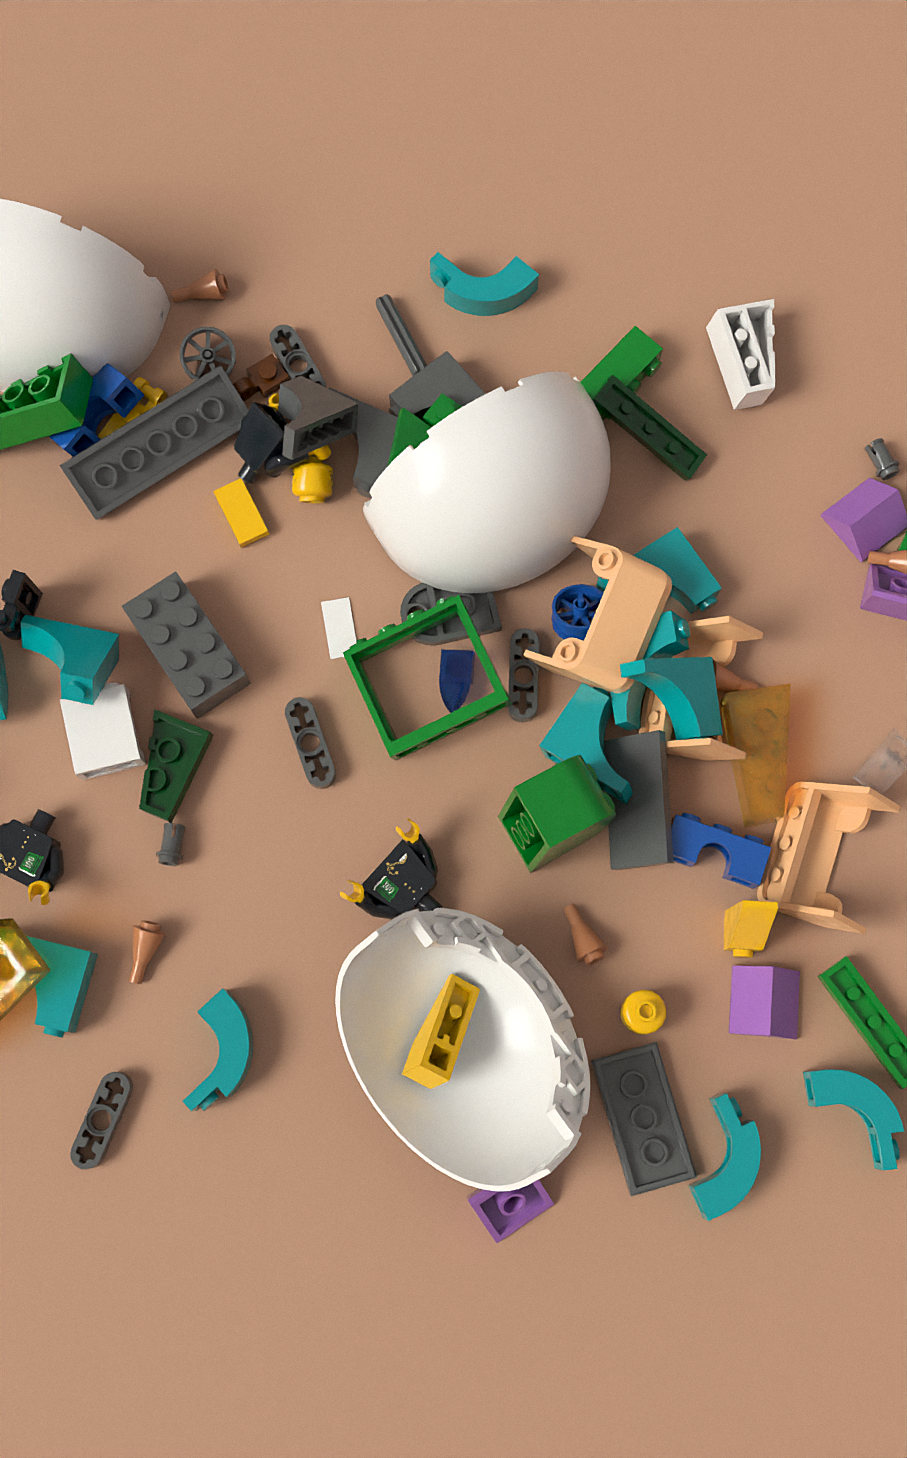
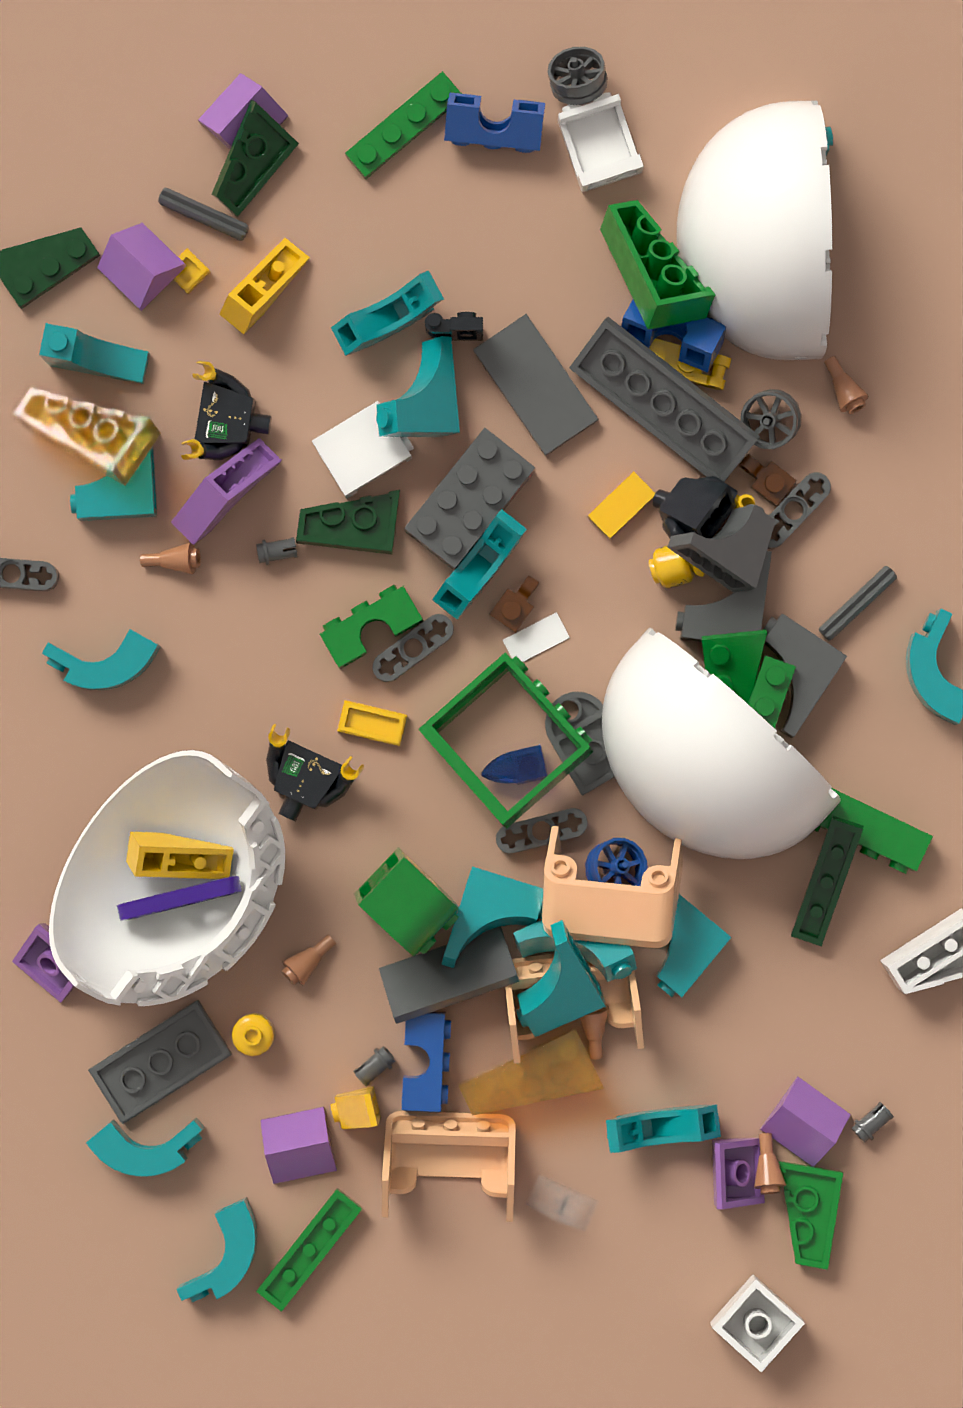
camera: 80 degrees right, 10 degrees up
(93, 878) = (224, 489): none -> medium lavender arch
(100, 556) = (535, 384): none -> dark grey tile
(250, 650) = (480, 564): none -> teal arch
(268, 747) = (344, 636): none -> green arch
(303, 637) = (513, 607): none -> reddish brown plate
(370, 804) = (372, 723): none -> yellow tile
(484, 1044) = (179, 898): none -> dark purple beam
(706, 901) = (375, 1065): none -> dark grey pin
(839, 641) = (663, 1127): none -> teal arch

